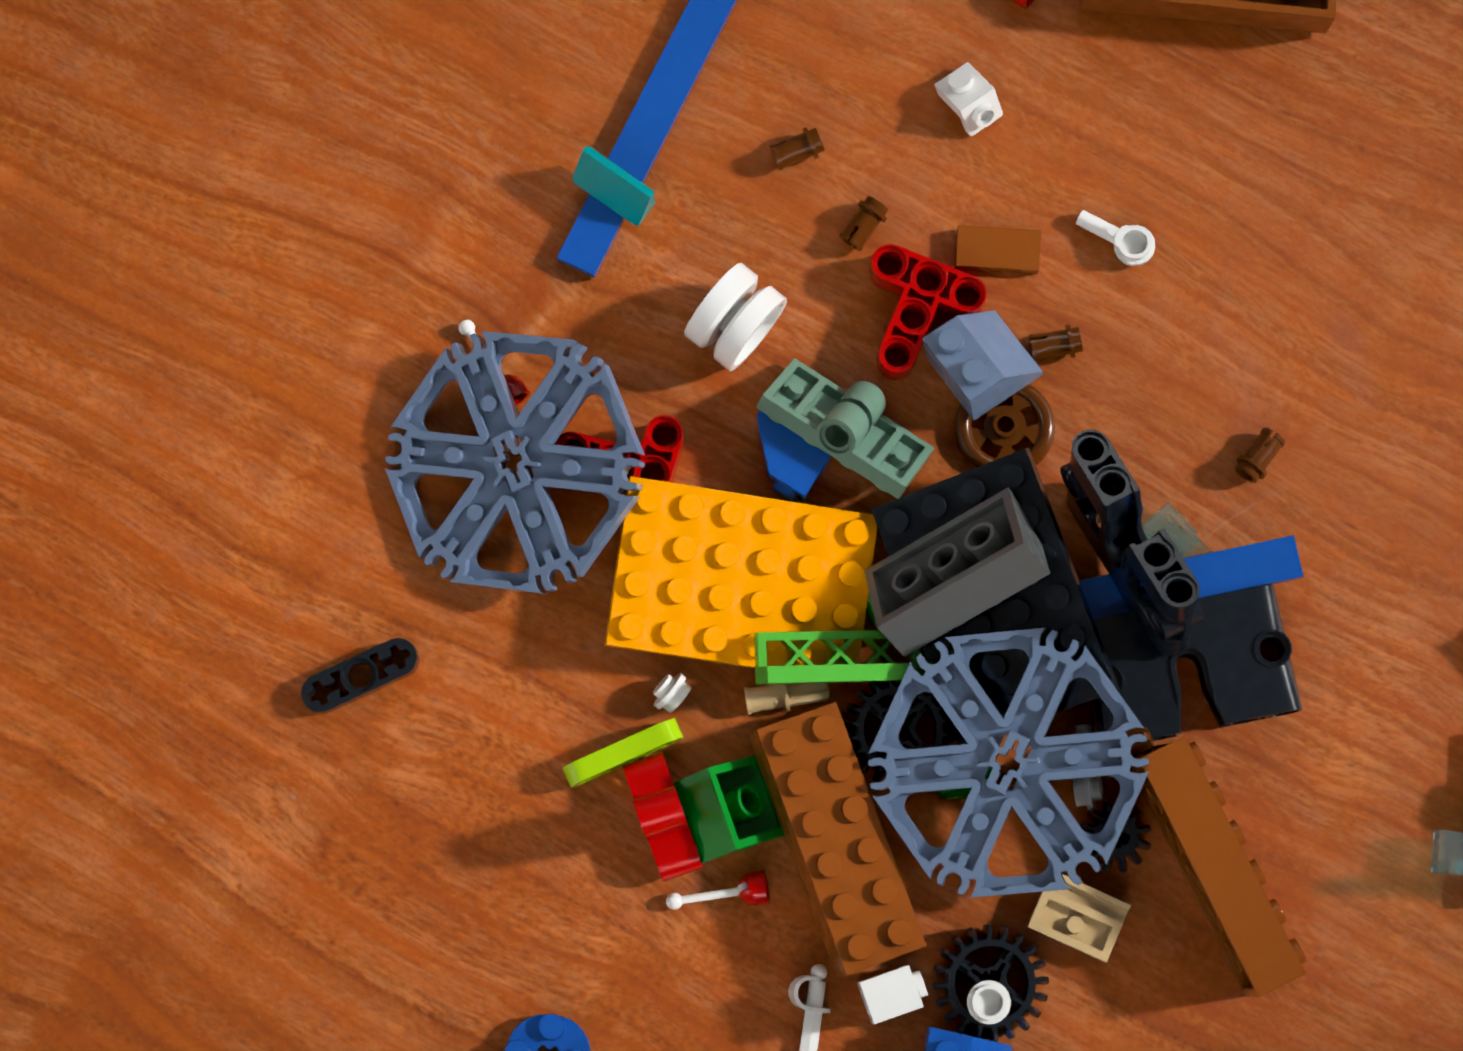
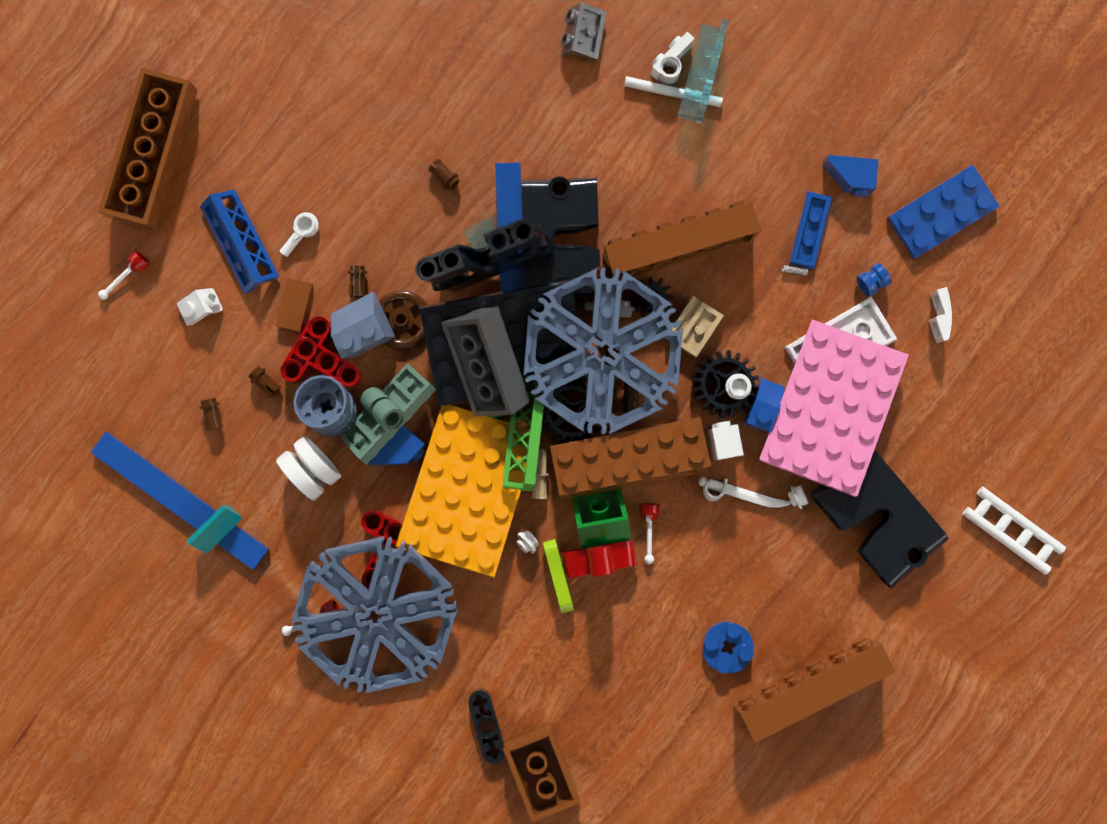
camera: 85 degrees left, 5 degrees up
(298, 775) = (541, 773): none -> dark orange brick
(844, 305) = (314, 398): none -> sand blue wheel
(938, 826) = (631, 398): none -> reddish brown pin
(1080, 132) = (233, 240): none -> blue fence

